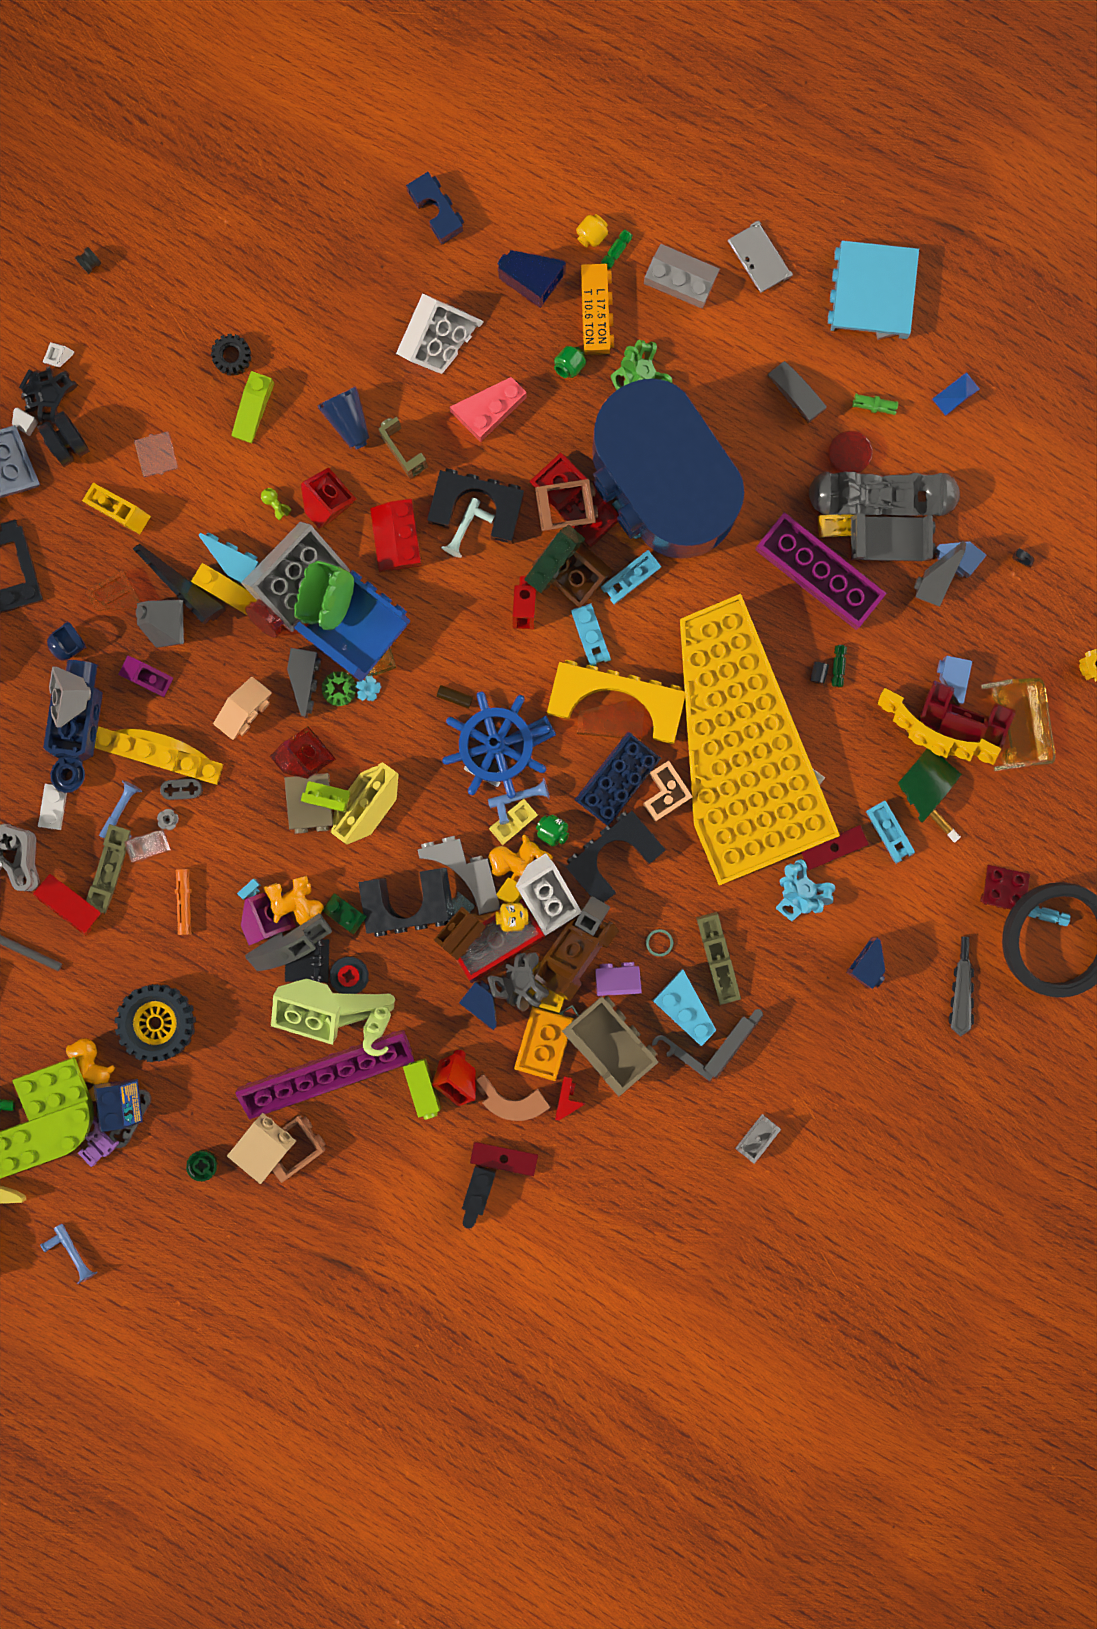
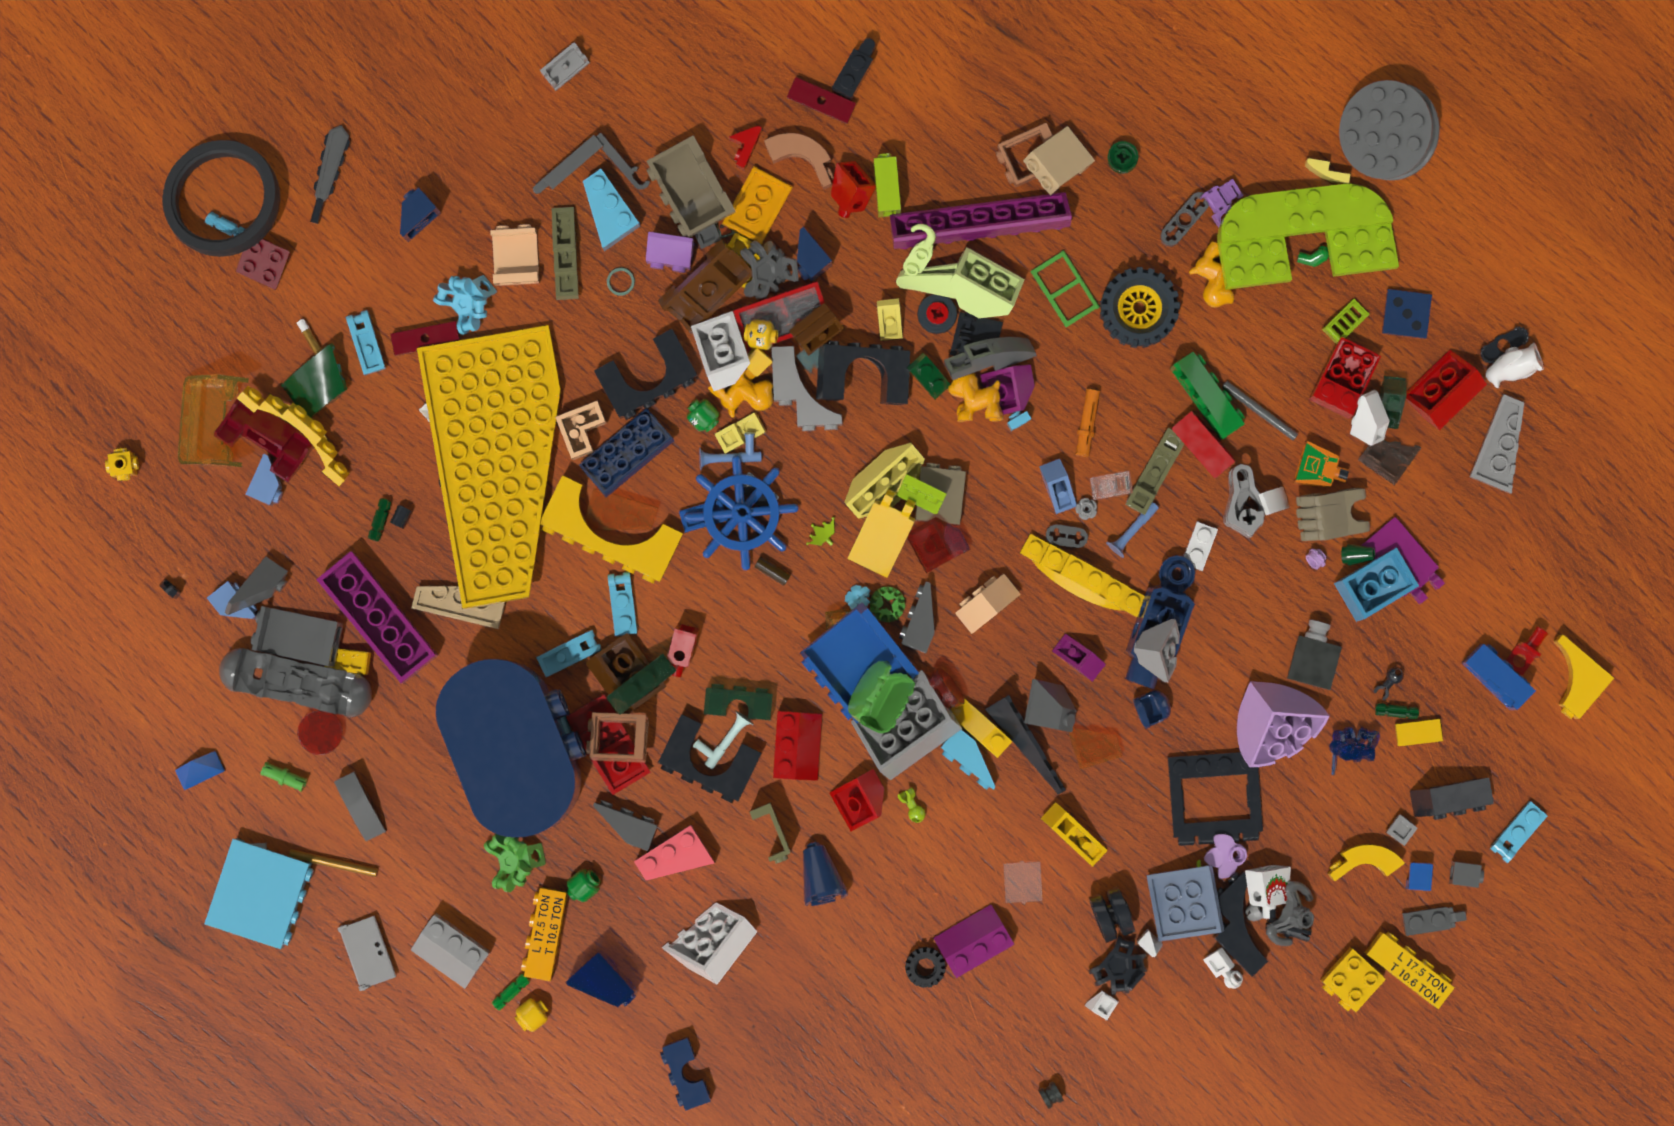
camera: 165 degrees left, 0 degrees up
(63, 1236) = (1274, 115): medium blue piece -> none
(73, 951) = (1207, 395): none -> green wedge
(118, 1104) = (1192, 233): dark blue slope -> none
(190, 387) = (973, 941): none -> magenta slope
(199, 835) = (1058, 486): none -> medium blue slope
(243, 1015) = (1051, 297): none -> bright green window
(252, 406) = (915, 908): lime slope -> none
(355, 751) = (883, 535): none -> yellow tile
(393, 960) = (889, 319): none -> light yellow slope
(414, 742) = (822, 534): none -> lime piece
(441, 569) = (758, 702): none -> clear green arch
(535, 424) = (631, 829): none -> dark grey slope
(583, 1002) = (708, 236): none -> dark grey plate
(592, 915) = (680, 319): dark grey brick -> none
(758, 600) = (447, 602): none -> tan wing
(765, 945) = (515, 255): none -> light nougat panel
(811, 334) = (334, 863): none -> pearl gold bar

